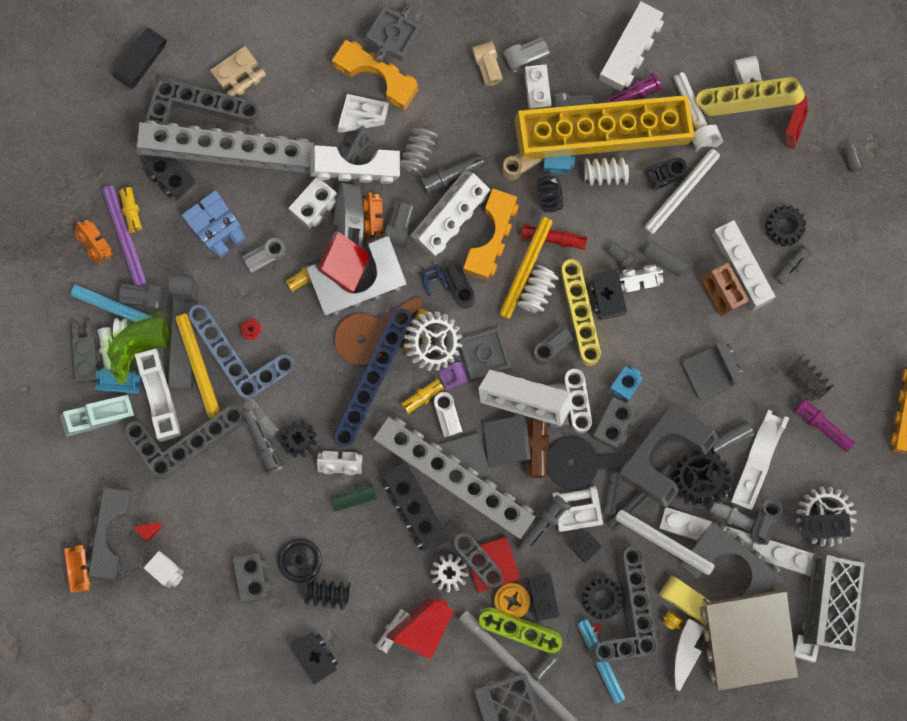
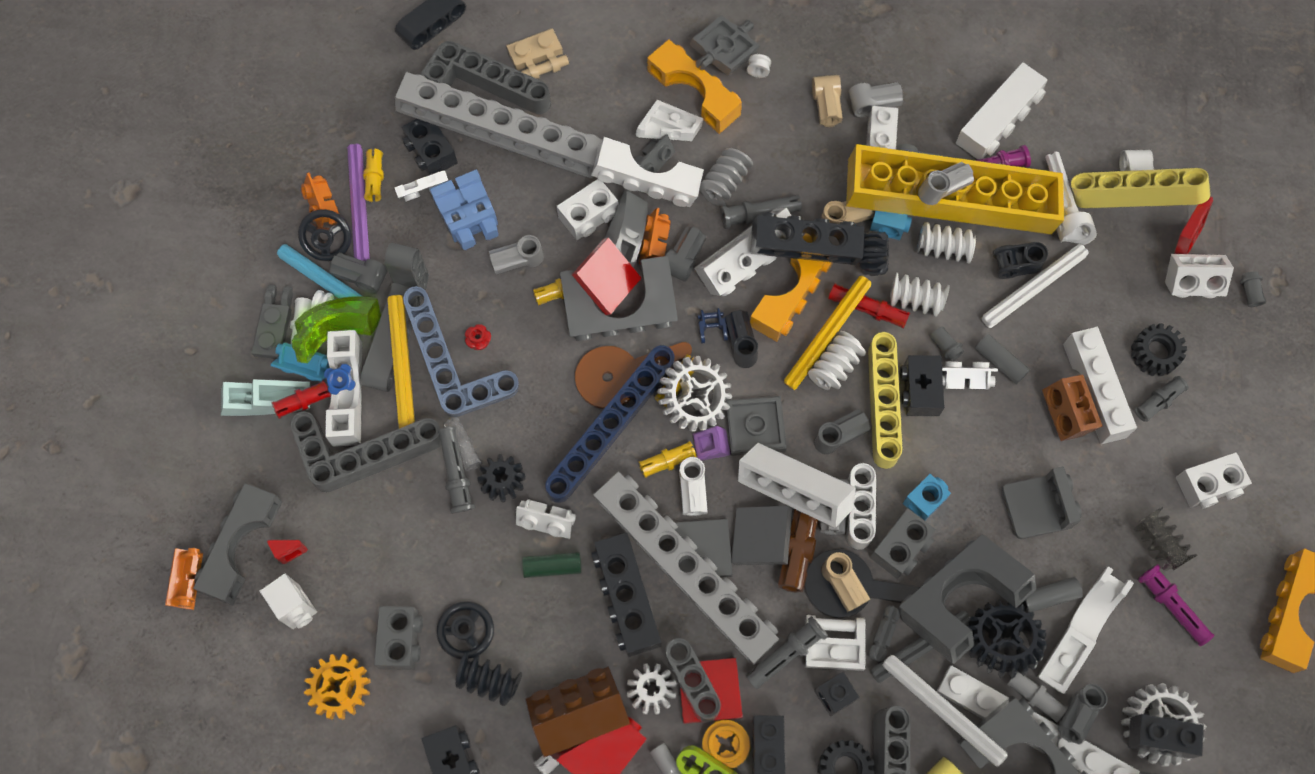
camera: 15 degrees right, 10 degrees down
(106, 280) = (317, 241): none -> black piece
(127, 411) = (301, 399): none -> red pin
(160, 391) = (336, 386): none -> blue plate
(172, 212) = (411, 190): none -> white wing
(208, 631) = (326, 692): none -> light orange gear
(399, 602) = (576, 711): none -> reddish brown brick
(424, 44) = (759, 65): none -> white bush
(462, 207) = (821, 249): none -> black brick
(578, 464) = (846, 584): none -> tan piece
(591, 220) = (918, 294): none -> white piece
(595, 129) = (945, 182): none -> light grey piece
(807, 157) = (1199, 271): none -> white brick
(837, 319) = (1211, 476): none -> white brick

